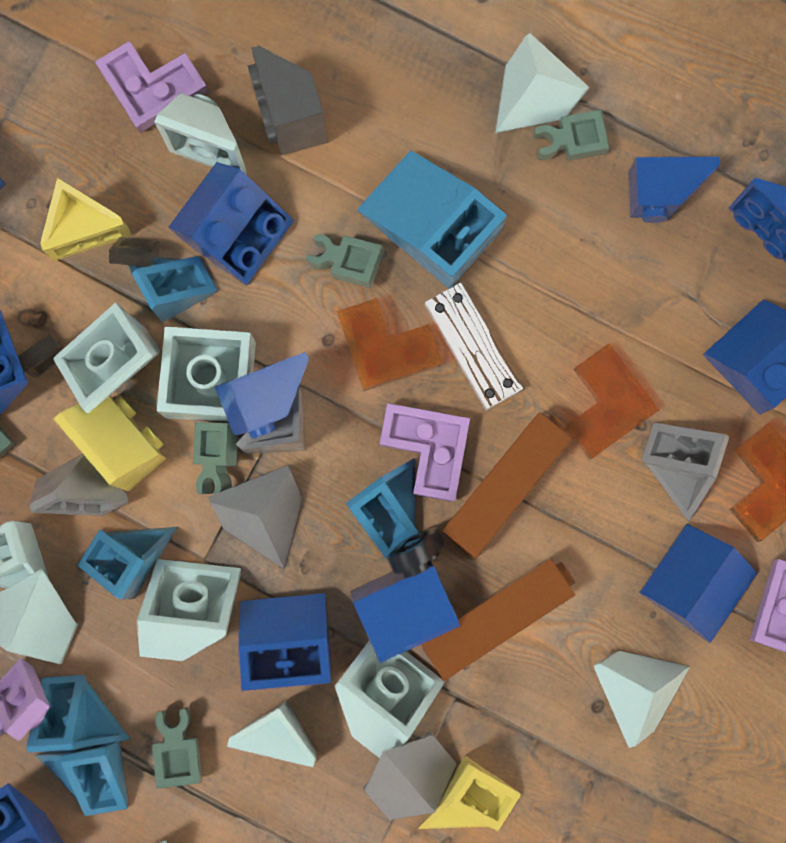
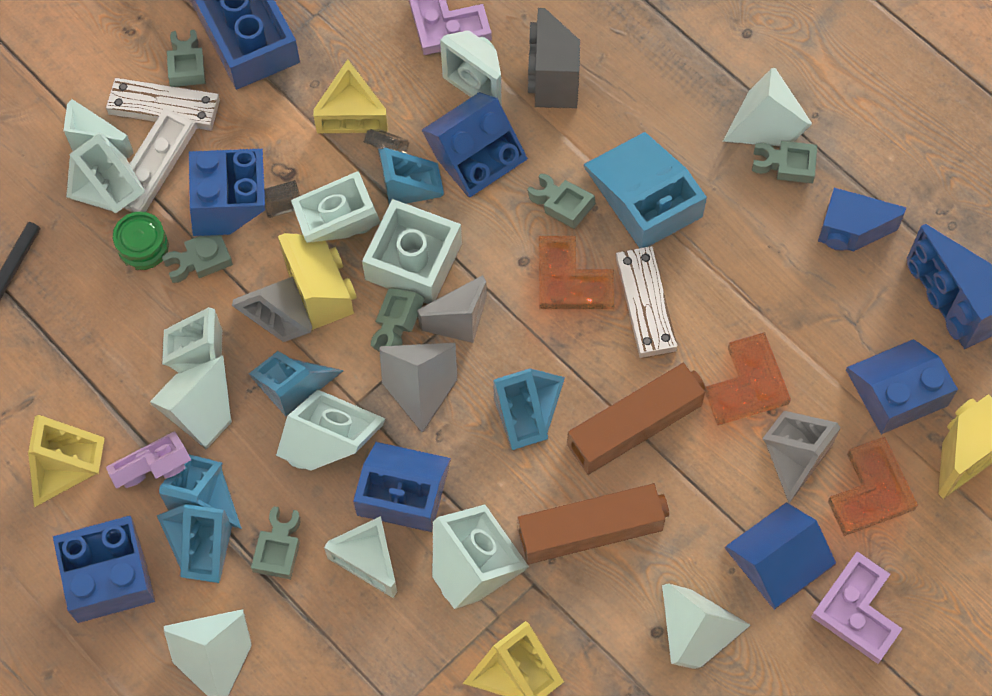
camera: 20 degrees right, 15 degrees down
(262, 396) = (452, 270): slope -> none
(403, 611) = (514, 484): blue slope -> none
(411, 778) = (467, 624): light grey slope -> none
(414, 552) = (540, 440): black plate -> none
(437, 438) = (588, 364): lavender plate -> none

